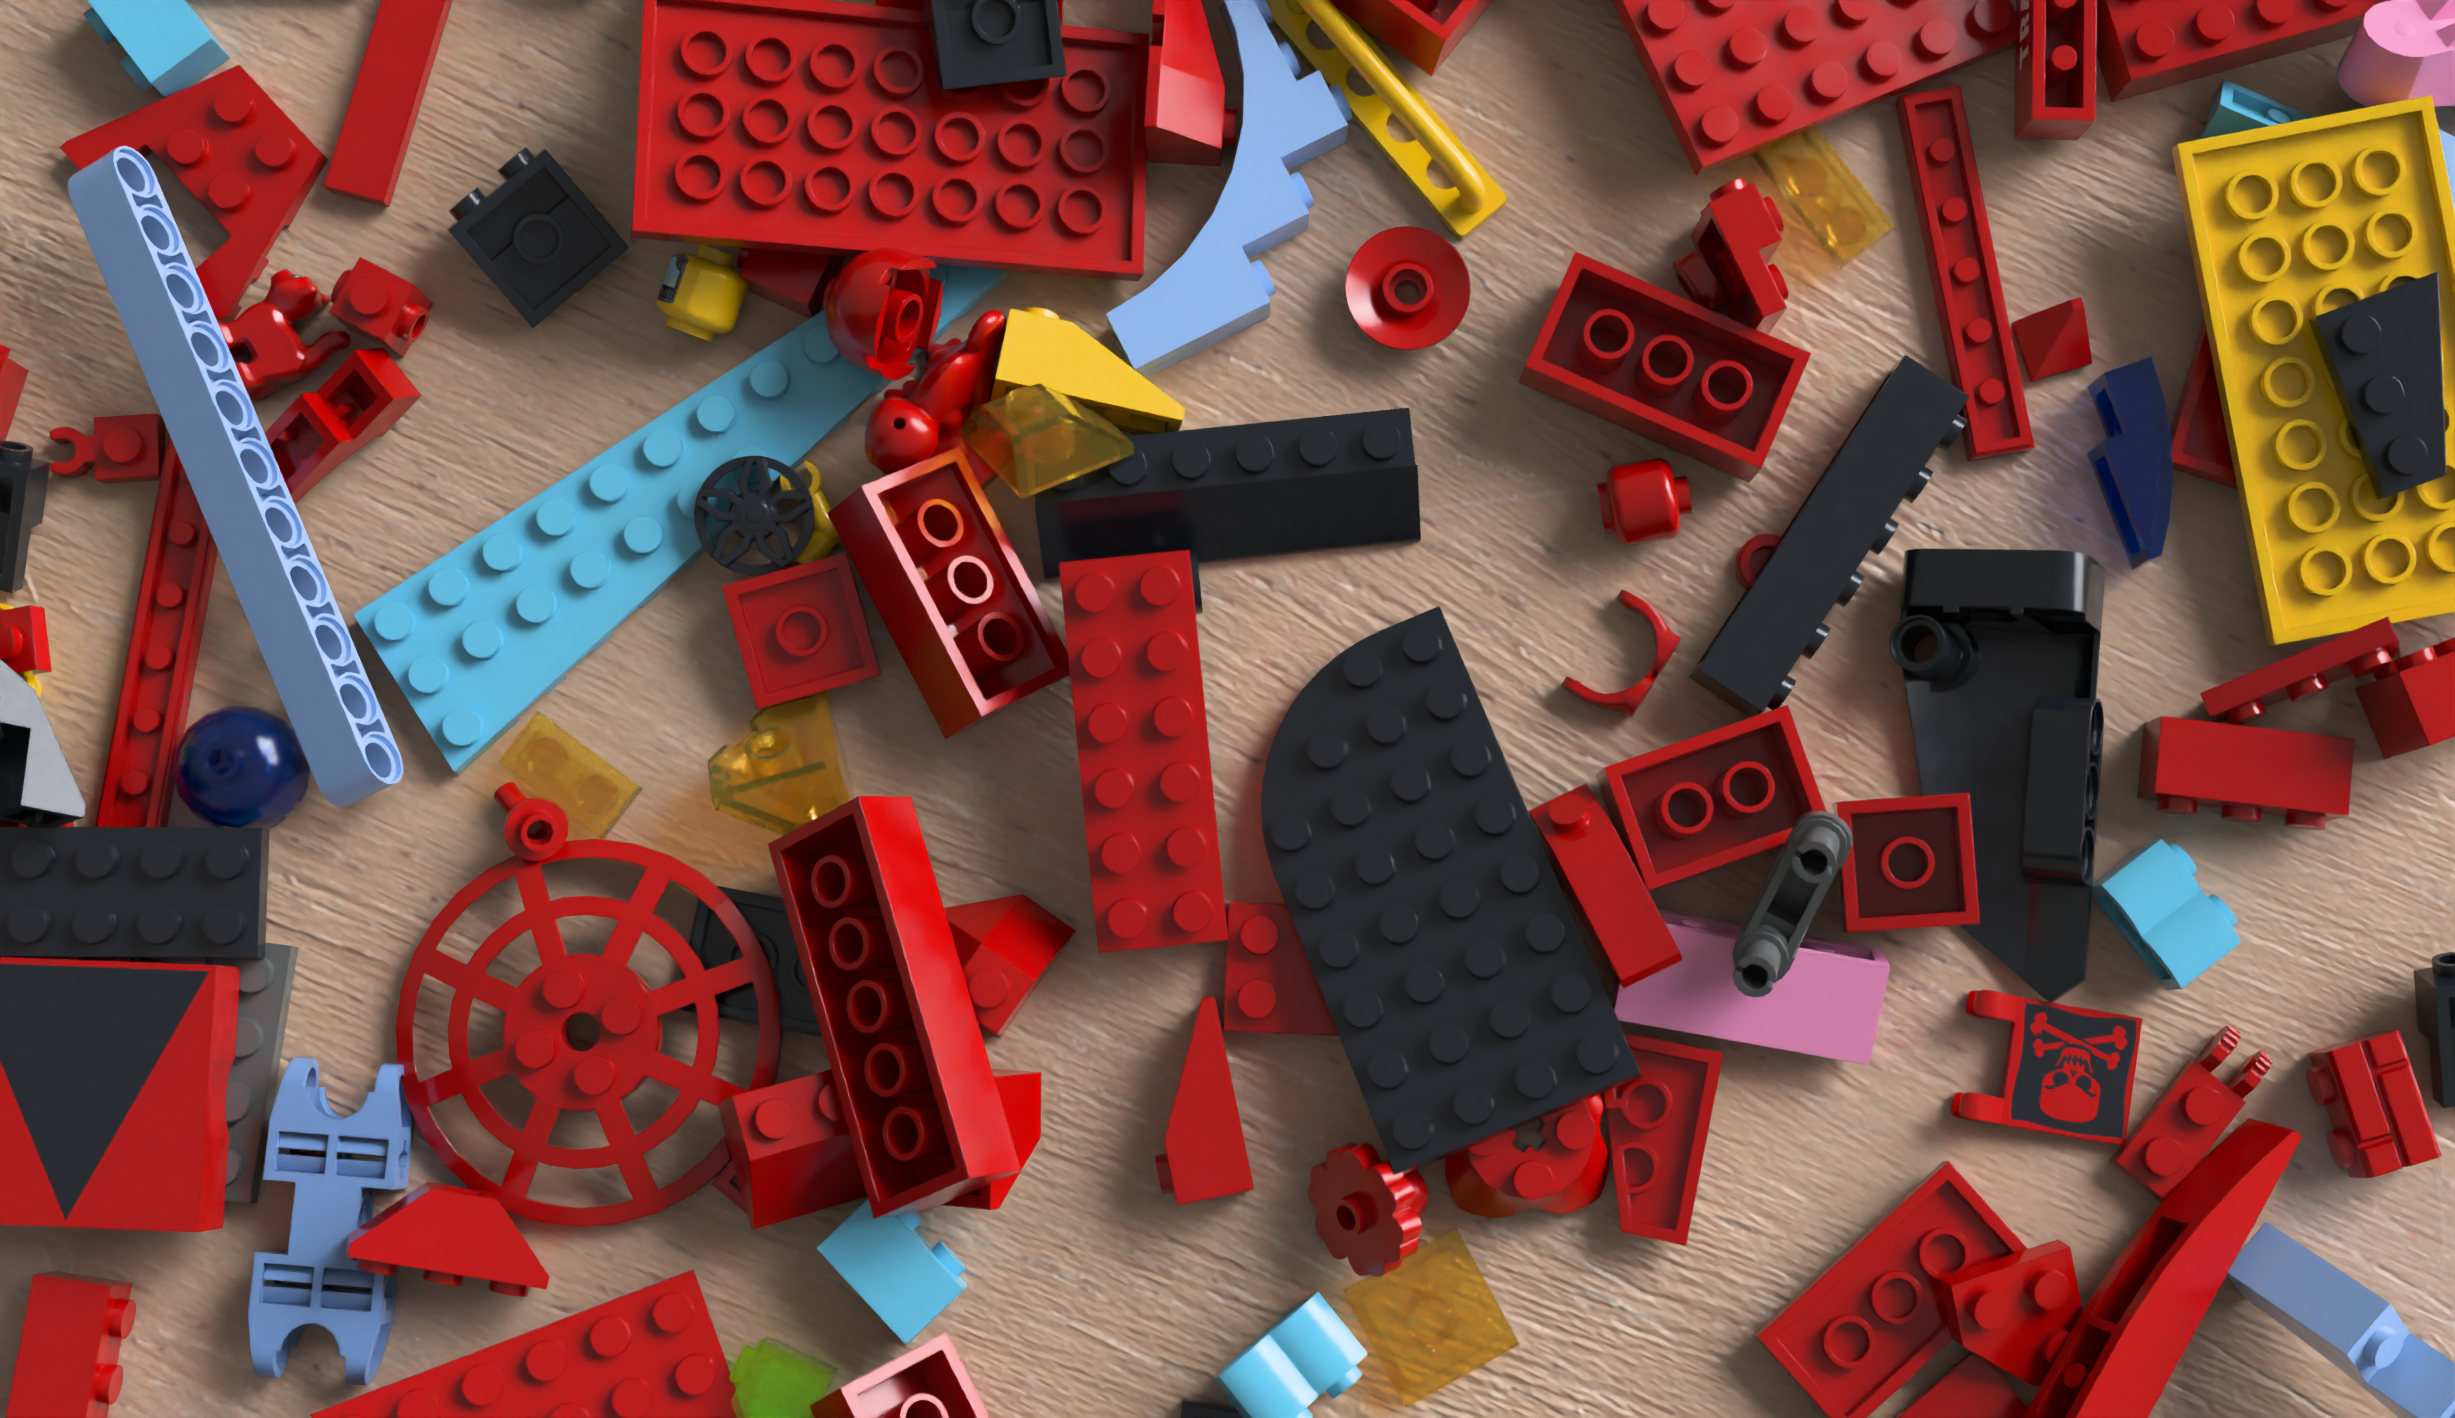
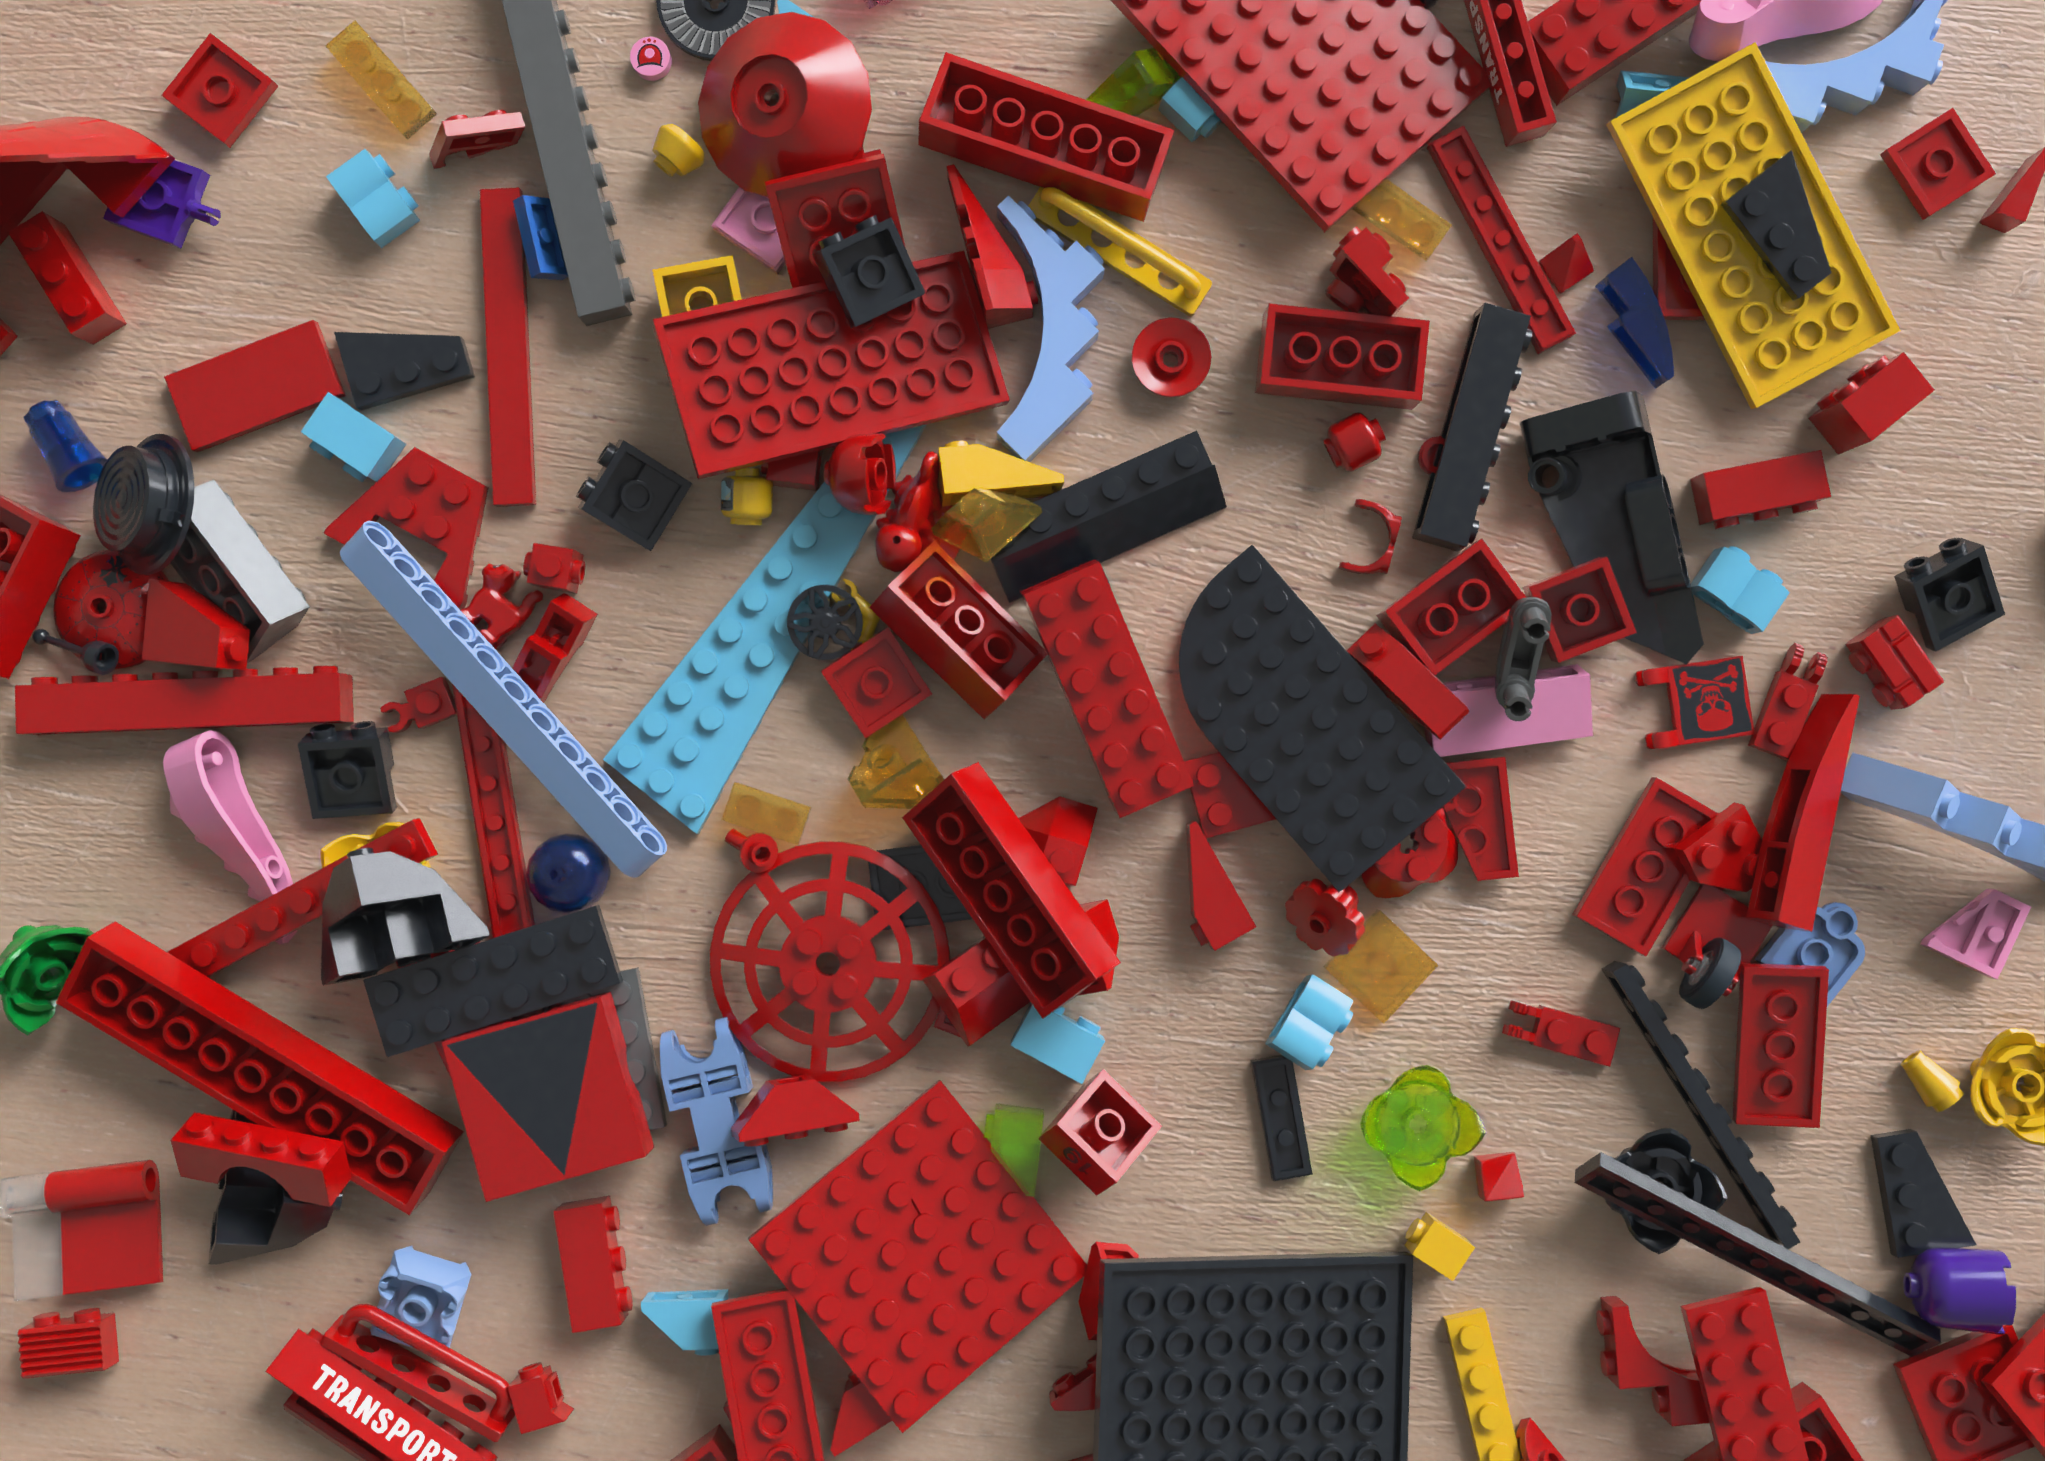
camera: 25 degrees left, 5 degrees up
(2304, 673) = (1780, 420): red wing -> none

